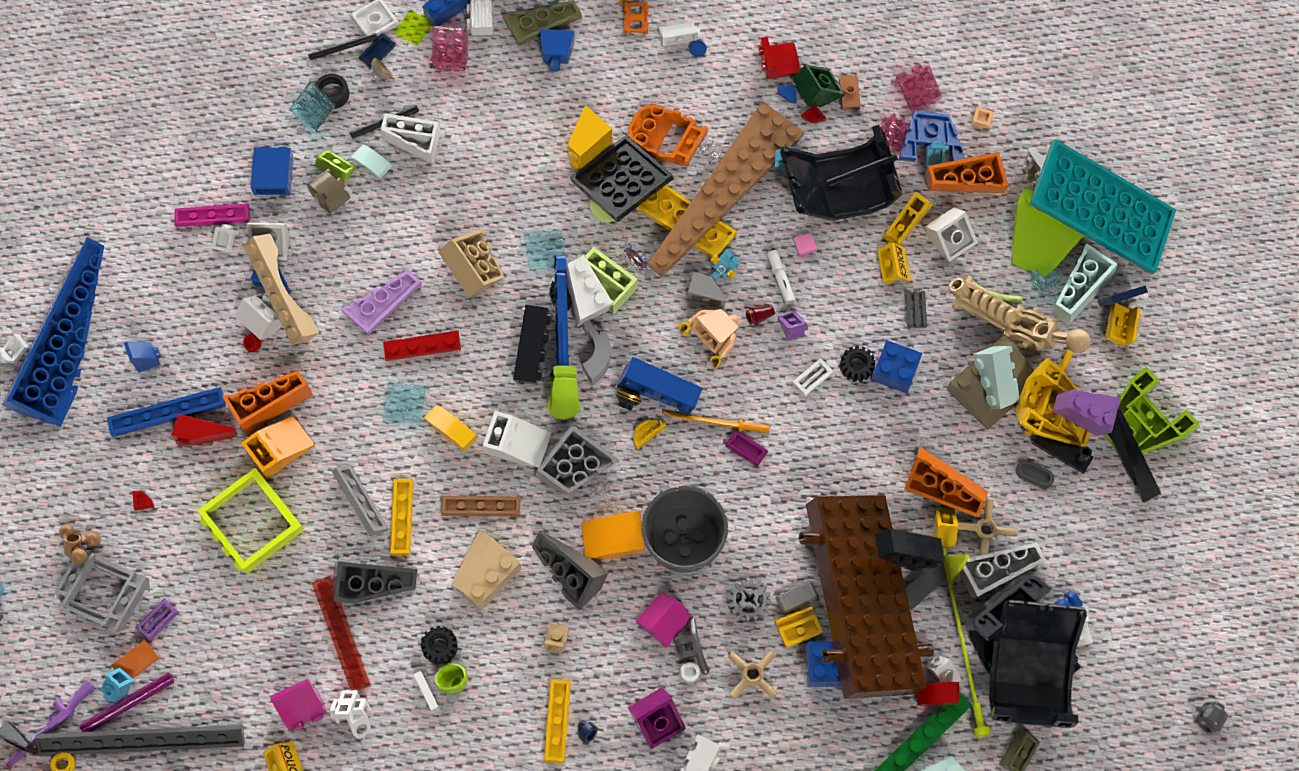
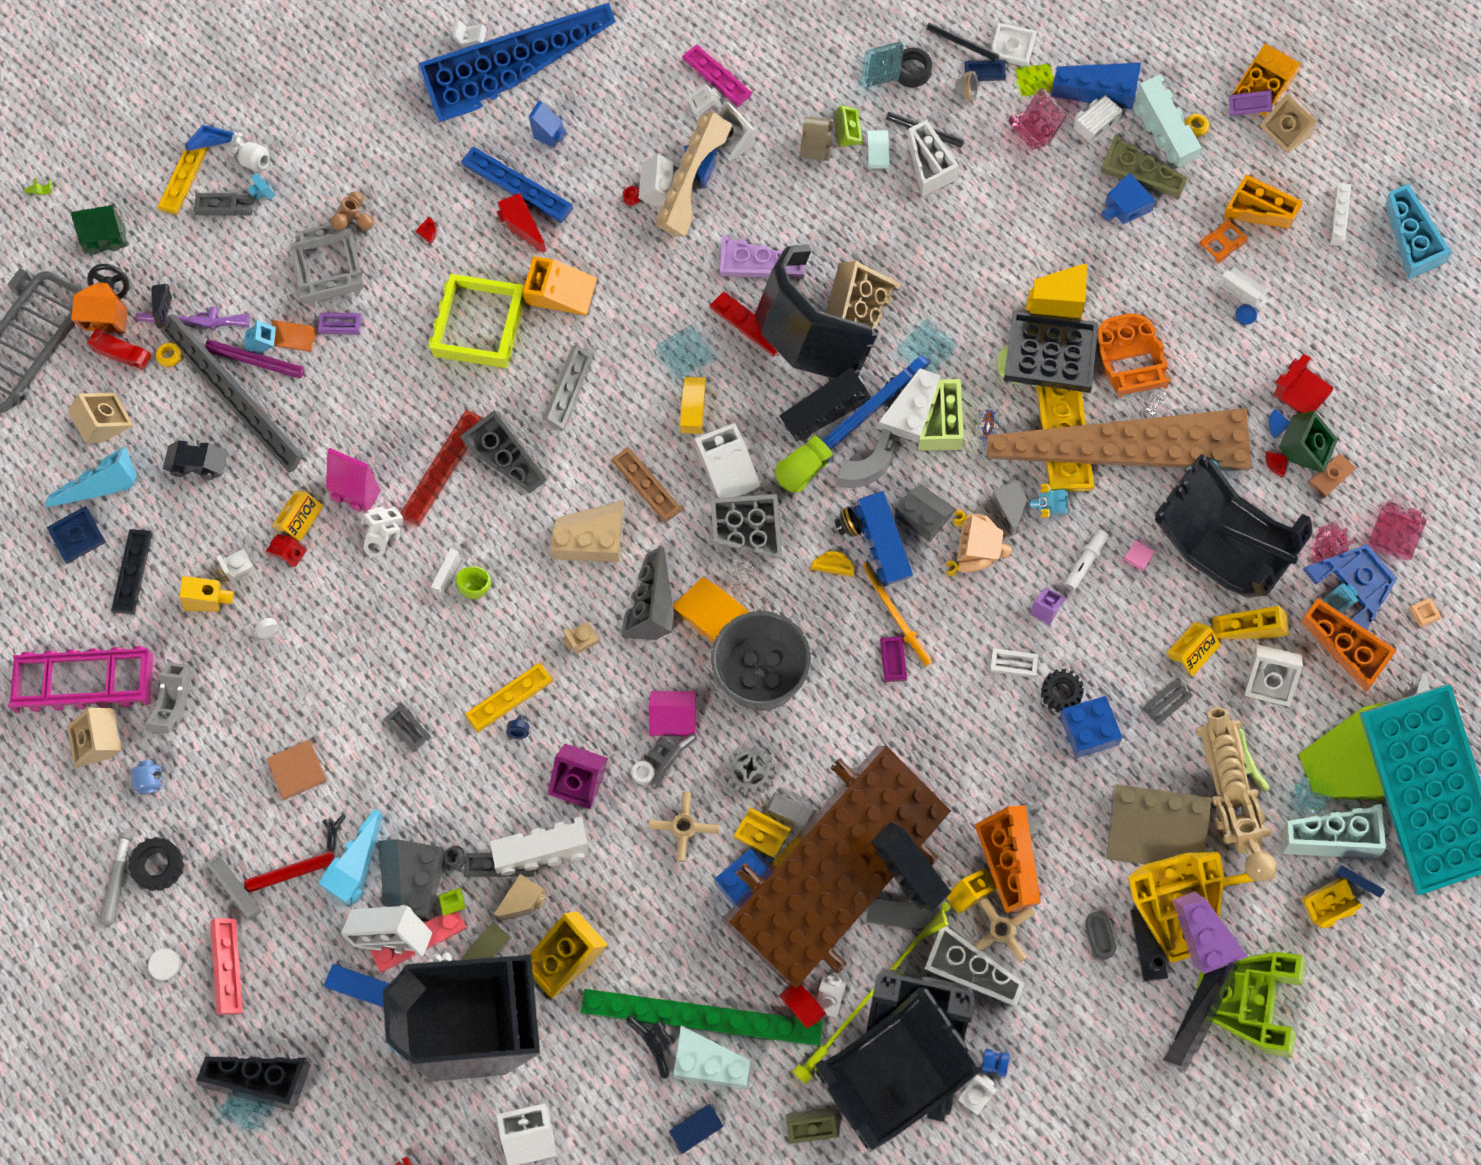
camera: 55 degrees right, 0 degrees up
(272, 171) = (796, 84): blue brick -> none
(274, 400) = (589, 247): orange wedge -> none
(401, 517) = (582, 431): yellow tile -> none
(433, 634) = (492, 538): black tyre -> none
(468, 313) = (802, 333): none -> black windscreen
(662, 346) = (924, 512): none -> dark grey slope
(758, 314) = (1032, 569): dark red cone -> none
(997, 376) = (1157, 821): light aqua wedge -> none

